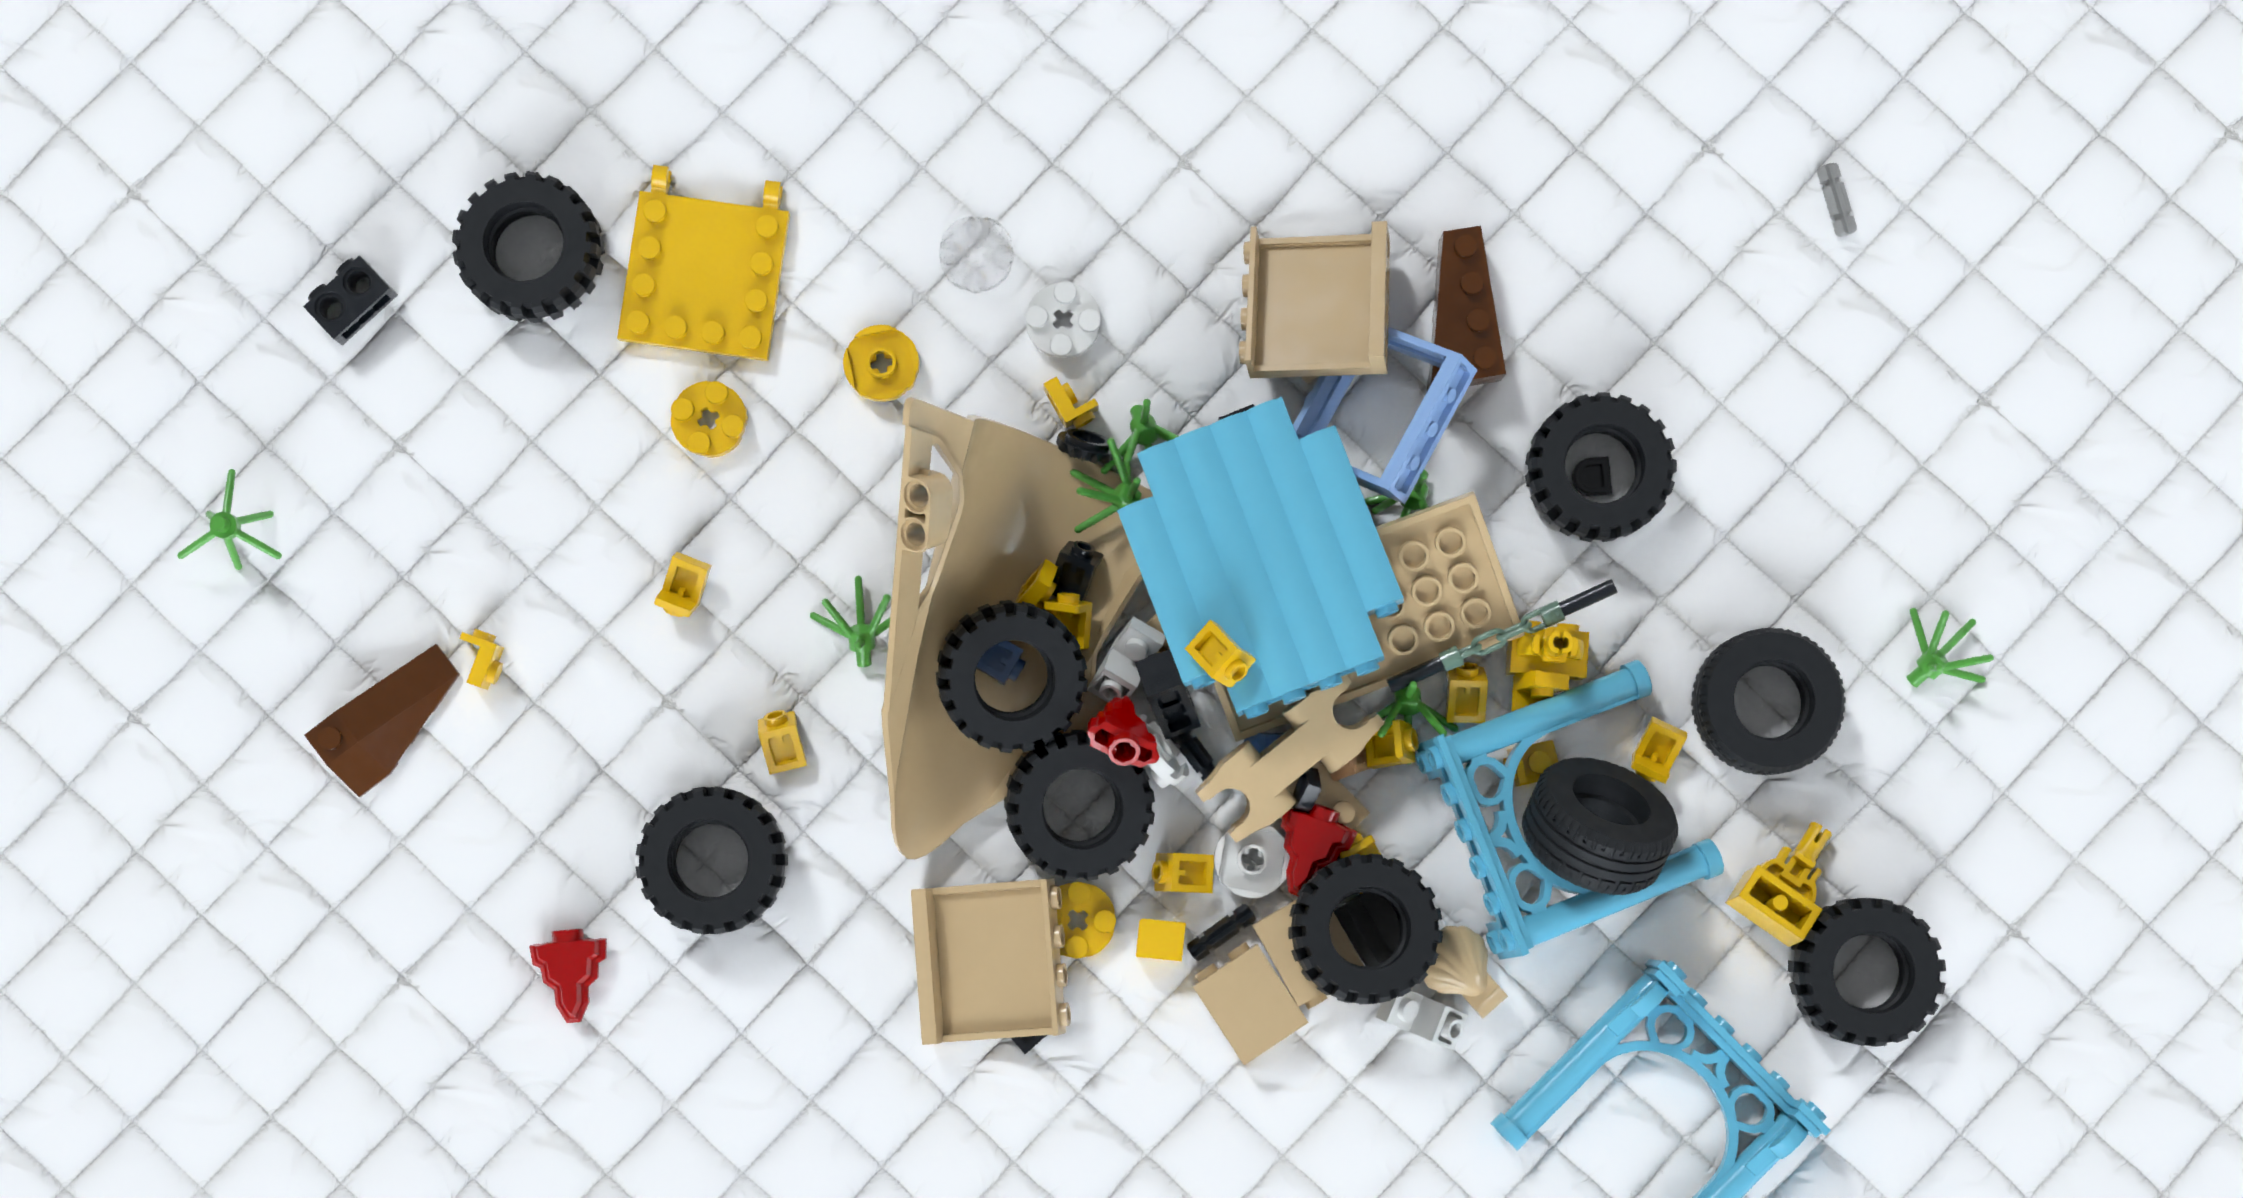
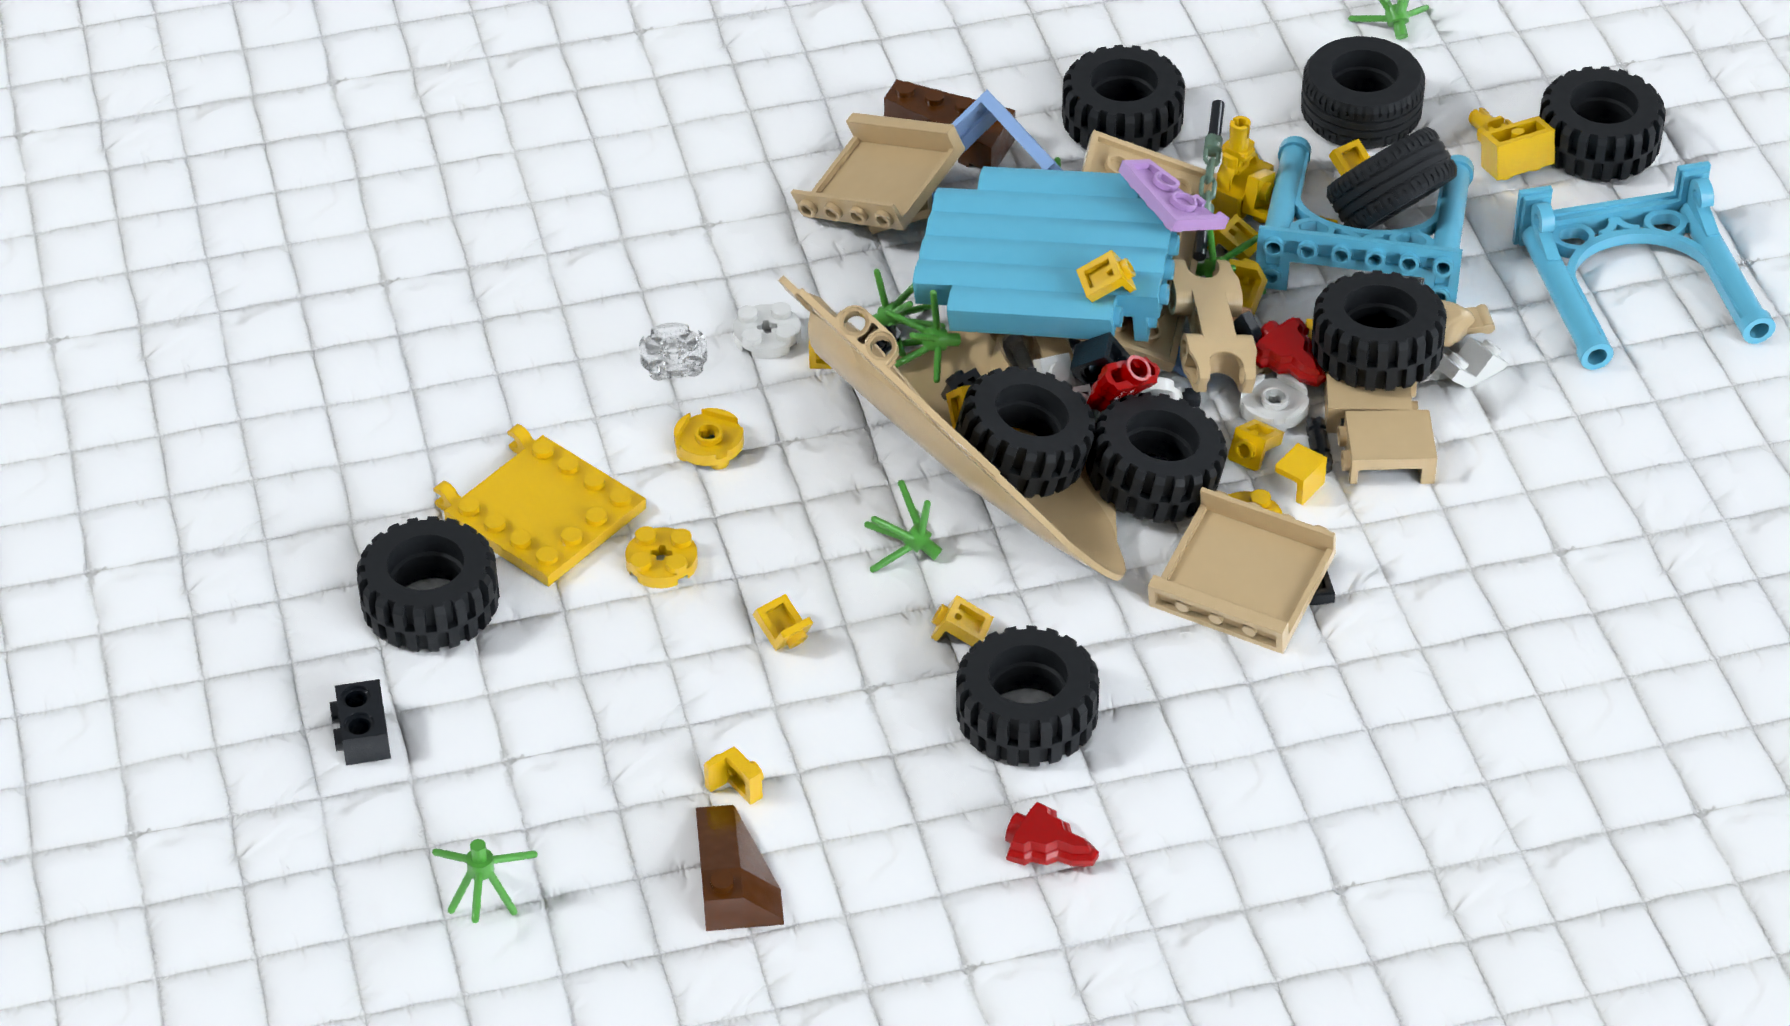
camera: 55 degrees left, 40 degrees down
(1362, 655) = (1172, 205): none -> lavender wing

